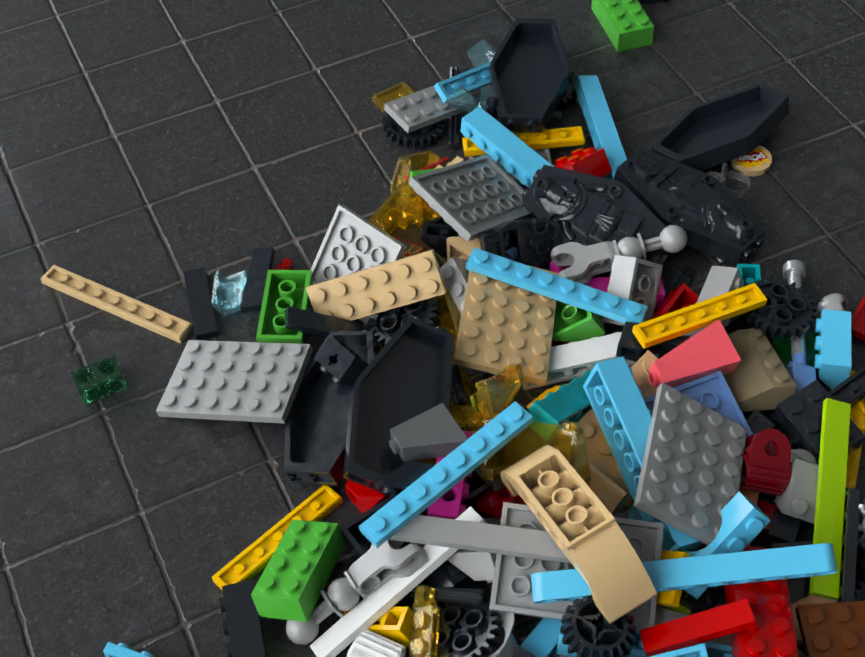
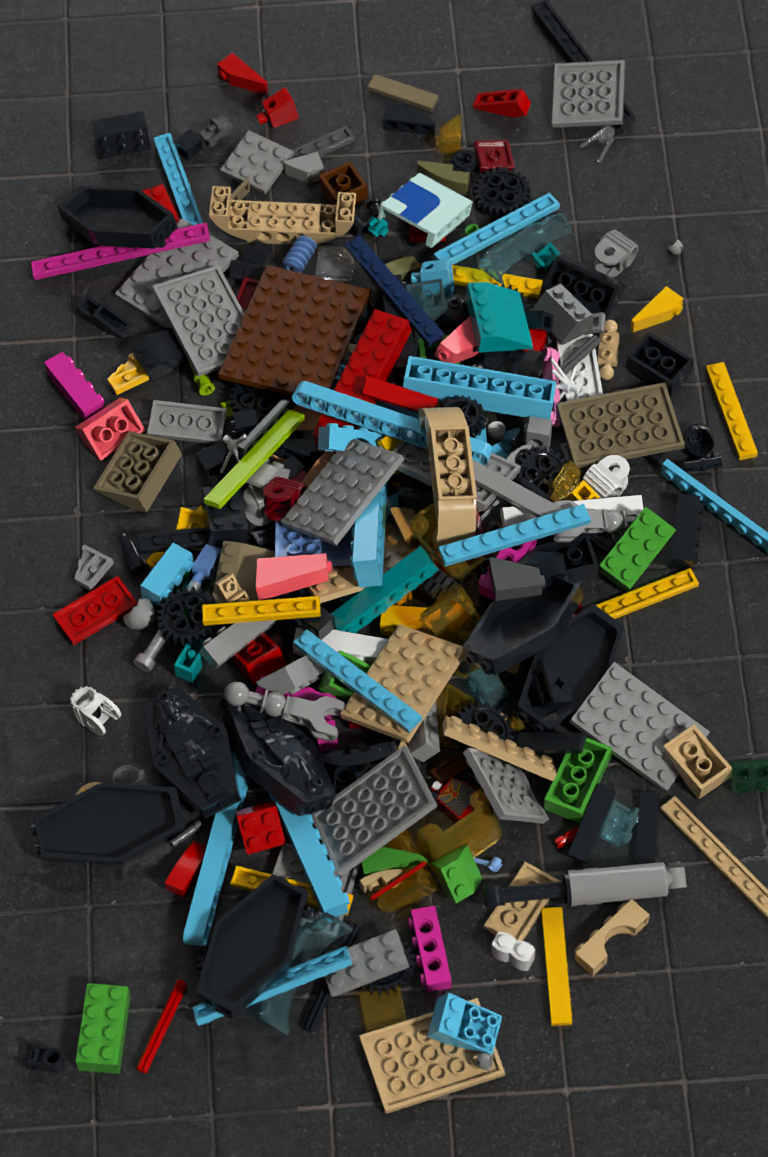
camera: 160 degrees left, 10 degrees up
(156, 362) = (697, 761): none -> tan slope
(196, 219) = (628, 920): none -> tan arch
(233, 228) = (594, 886): none -> light grey piece
(255, 174) = (556, 966): none -> yellow tile
(291, 79) = (484, 1061): none -> light grey hinge
(297, 163) = (510, 950): none -> white brick
(305, 208) = (519, 917): none -> tan tile
(319, 94) = (464, 1024): none -> medium azure slope
(339, 82) = (417, 1068): none -> tan plate
(372, 190) = (458, 873): none -> bright green slope
(373, 143) = (427, 918): none -> dark pink brick
(577, 41) = (161, 1026): none -> red axle
(628, 128) = (186, 869): none -> red slope
(749, 341) = (231, 589): none -> tan slope
(812, 215) = (85, 702): none -> white piece

